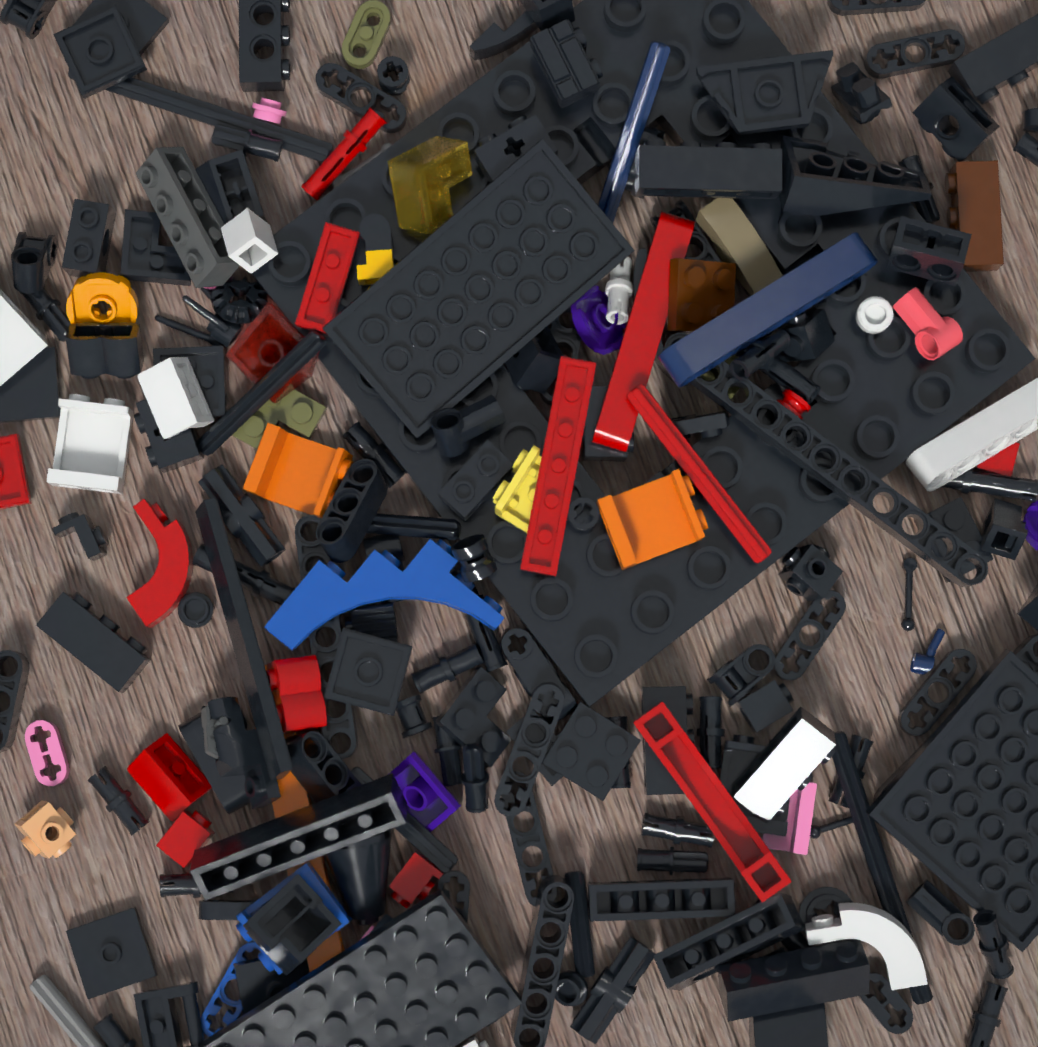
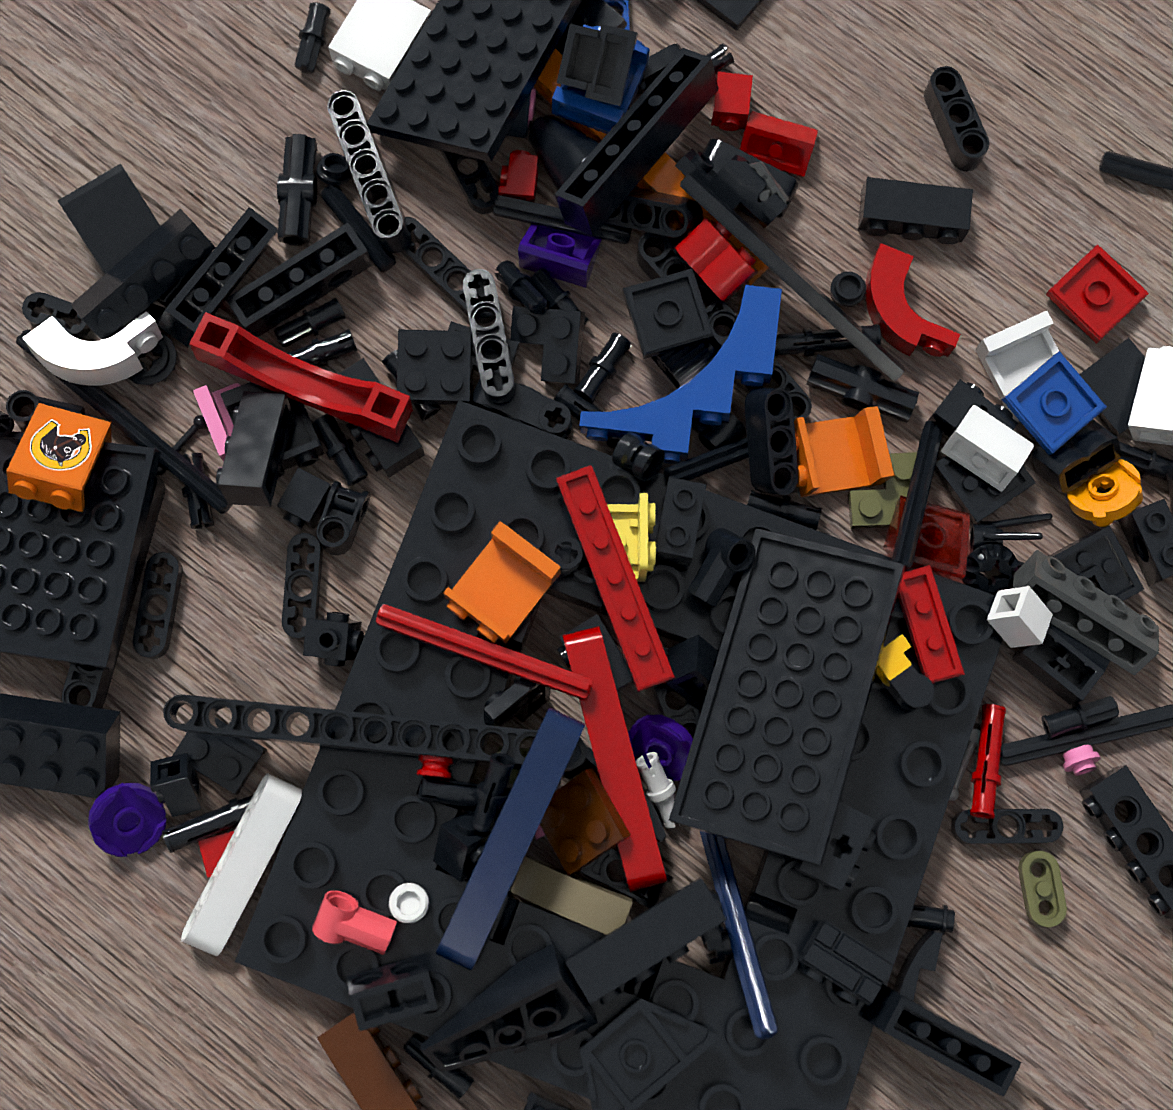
camera: 150 degrees right, 5 degrees down
(34, 825) = (850, 37): light nougat brick -> none
(55, 750) = (891, 103): bright pink beam -> none
(91, 537) = (980, 293): black bracket -> none
(97, 398) = (1054, 403): none -> blue plate
(118, 800) = (807, 99): black pin -> none
(386, 82) = (1003, 862): black bush -> none
(412, 716) = (607, 309): black bush -> none
(423, 182) = (904, 768): clear yellow panel -> none
(466, 64) = (932, 918): none -> black pin
(909, 566) = (219, 651): black hinge -> none
(924, 663) = (183, 624): dark blue hand -> none
(953, 856) = (57, 457): none -> orange panel

